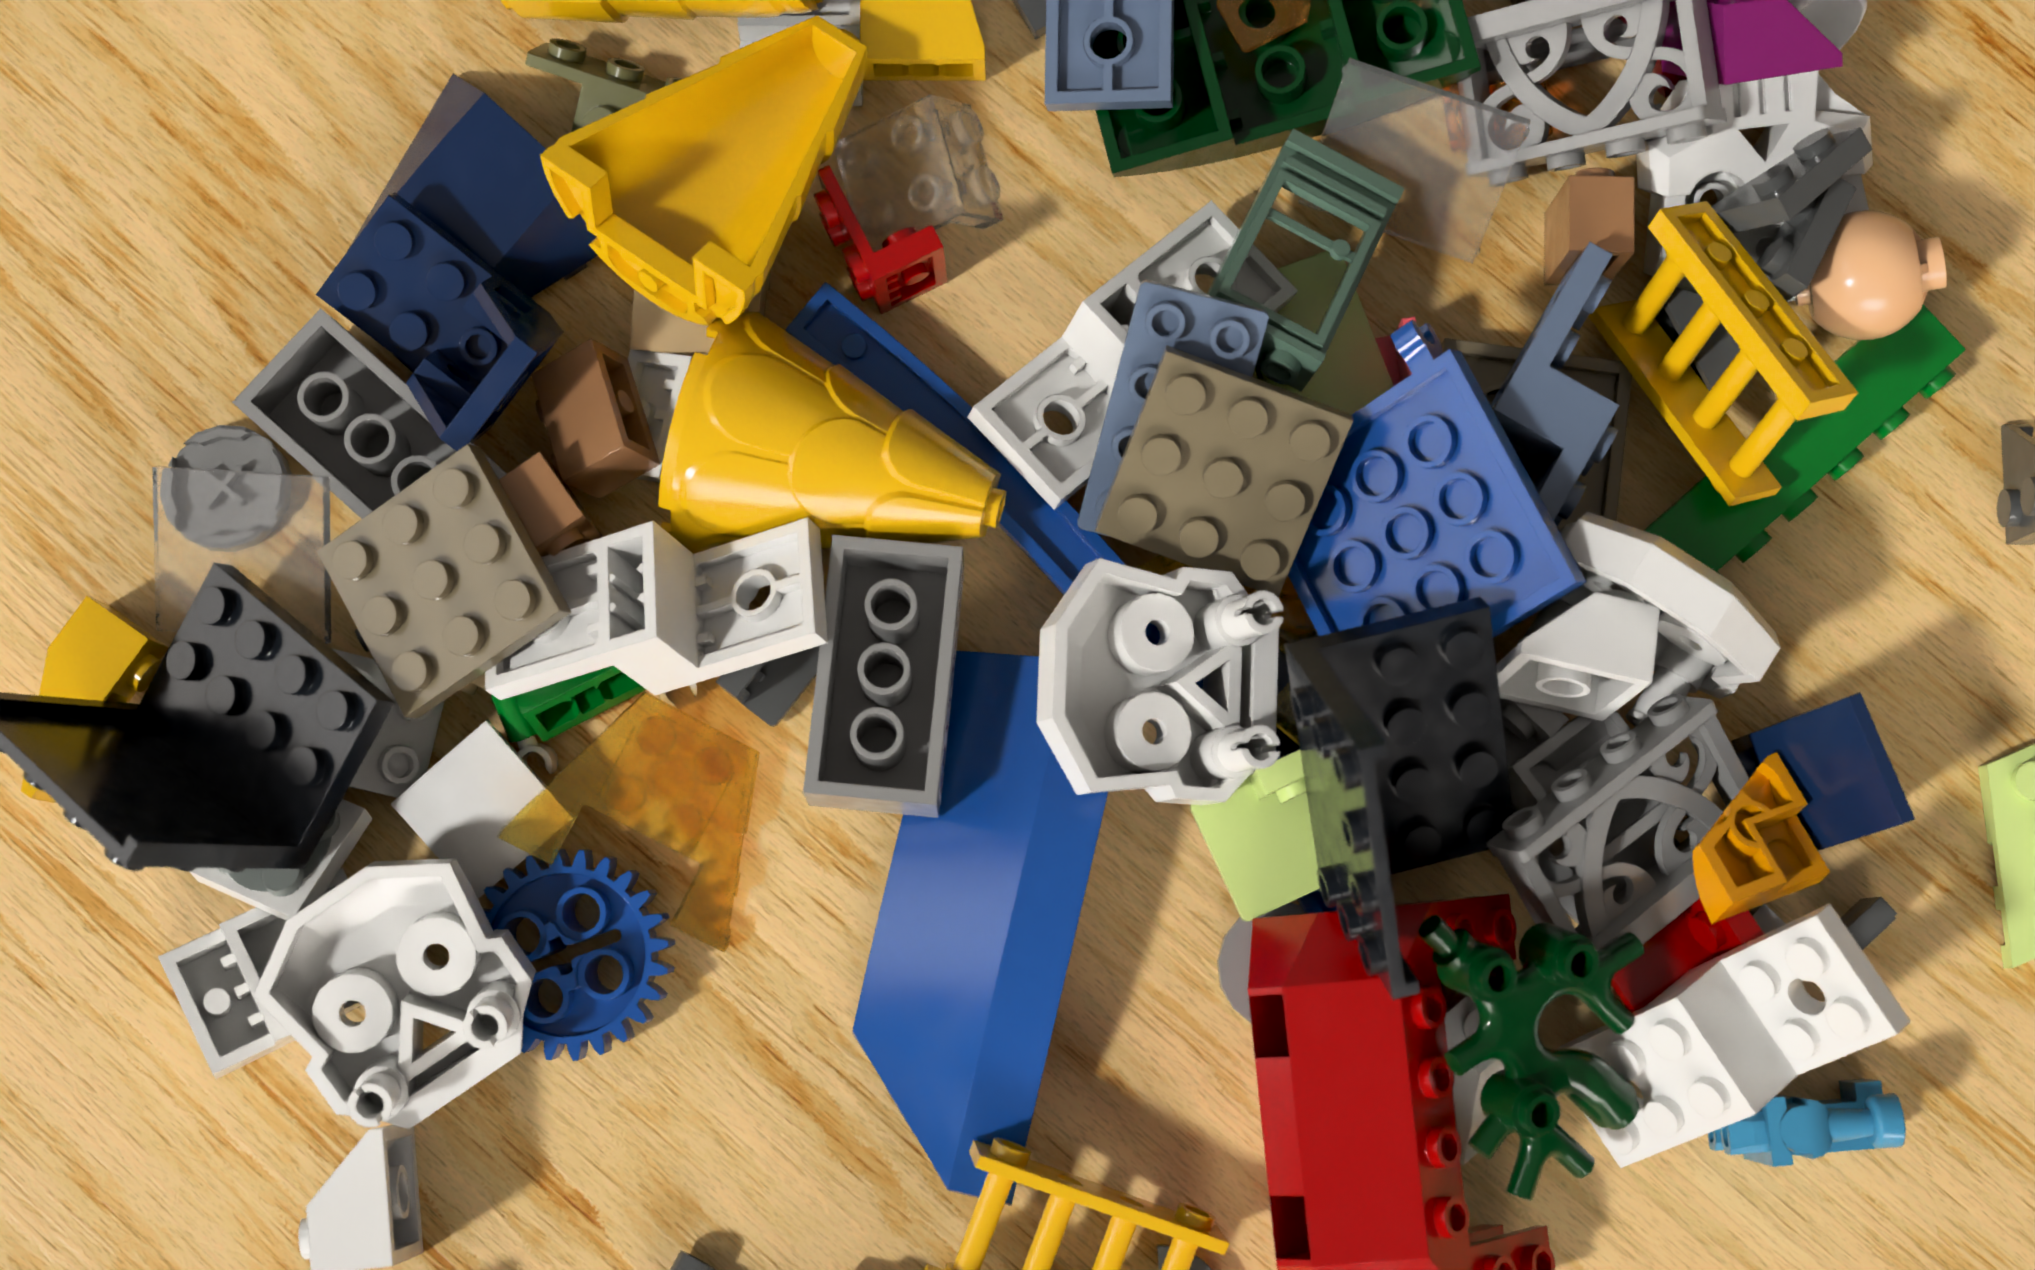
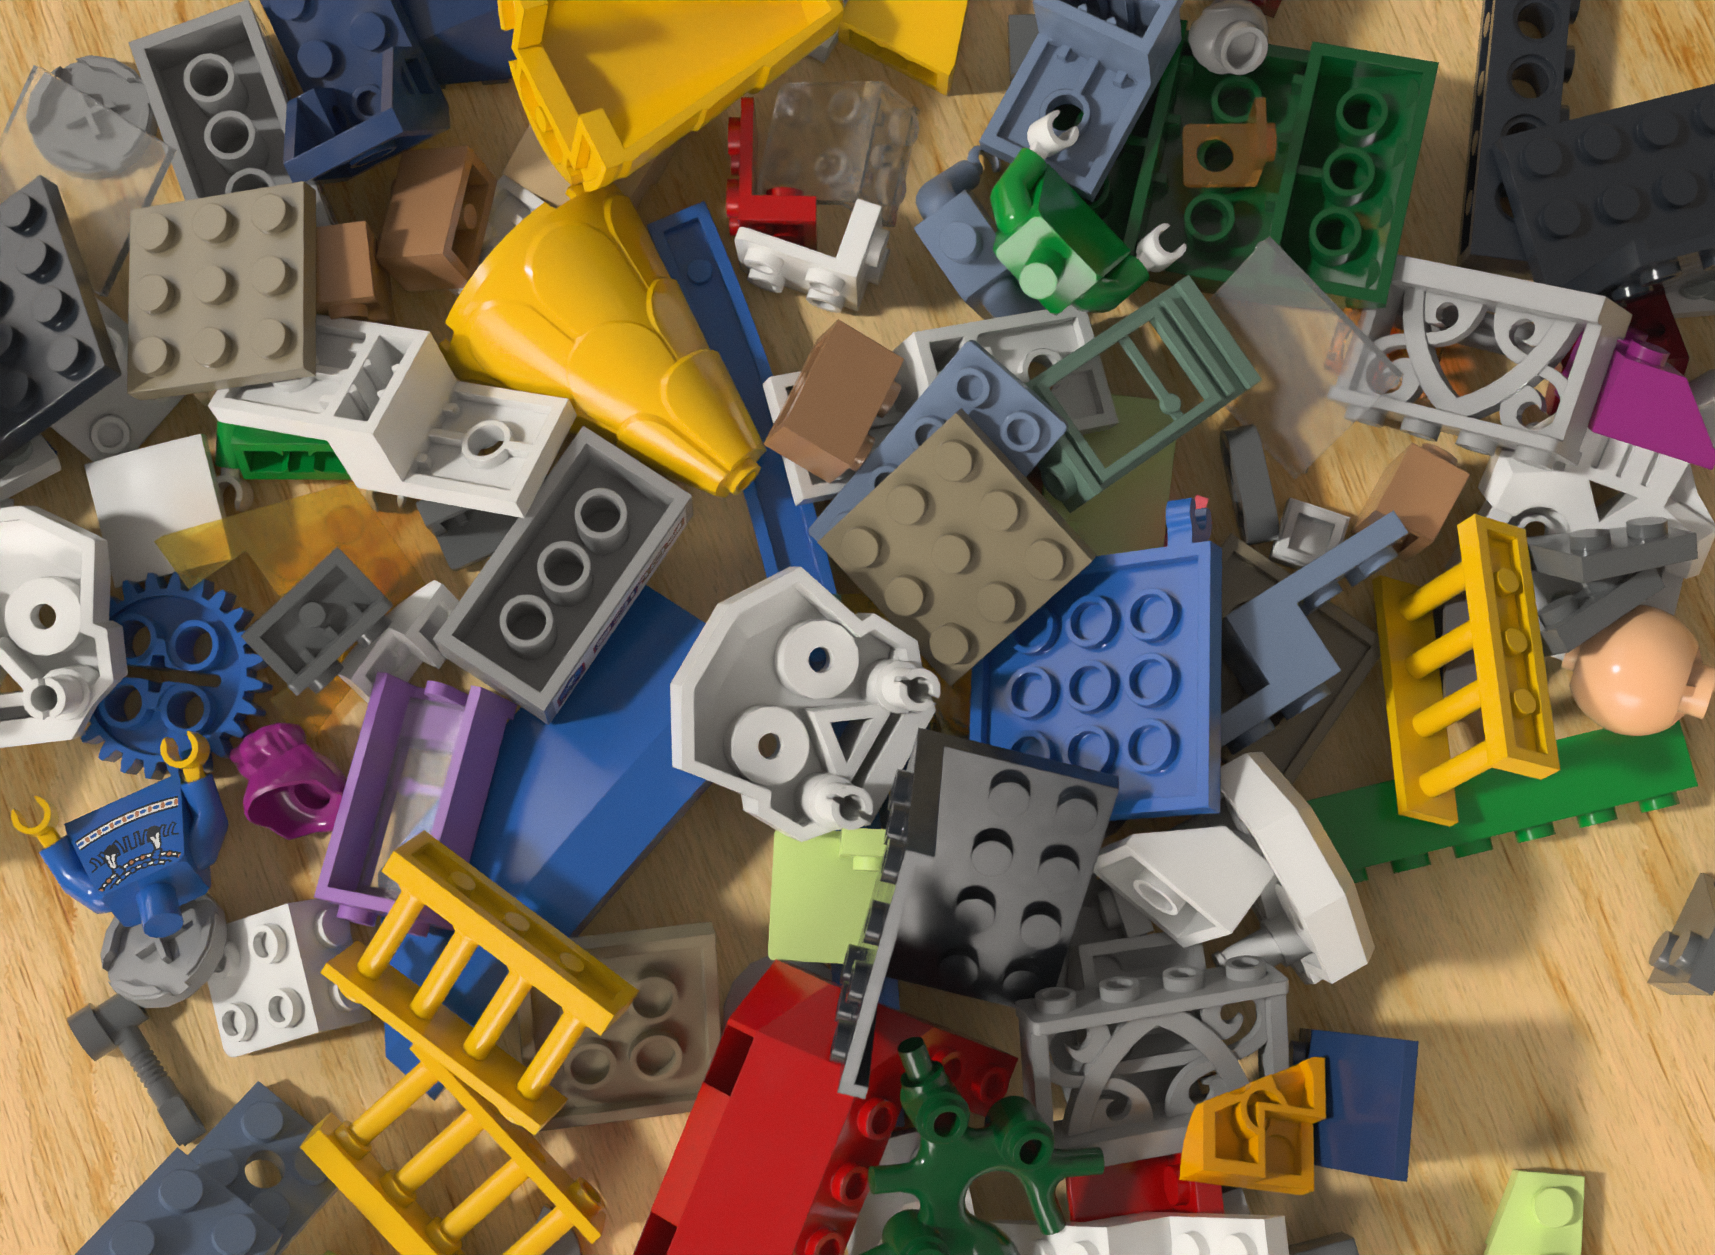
camera: 25 degrees right, 0 degrees up
(632, 1120) = (143, 850): none -> blue torso
(686, 833) = (319, 622): none -> dark grey bracket
(695, 1194) = (166, 968): none -> light grey tile
(733, 990) = (288, 782): none -> magenta hair
(762, 815) = (404, 642): none -> white slope
(816, 1167) = (272, 982): none -> white bracket
(855, 951) = (415, 768): none -> medium lavender door
(966, 296) = (824, 278): none -> white bracket
(1020, 1015) = (513, 934): none -> yellow fence
(1045, 399) = (836, 402): none -> medium nougat brick
(1093, 203) = (963, 237): none -> sand blue torso
(1144, 1050) = (658, 1049): none -> dark tan plate
(1164, 155) = (1057, 241): none -> green torso
(1437, 287) = (1249, 484): none -> dark grey beam
(1510, 306) = (1306, 534): none -> white tile

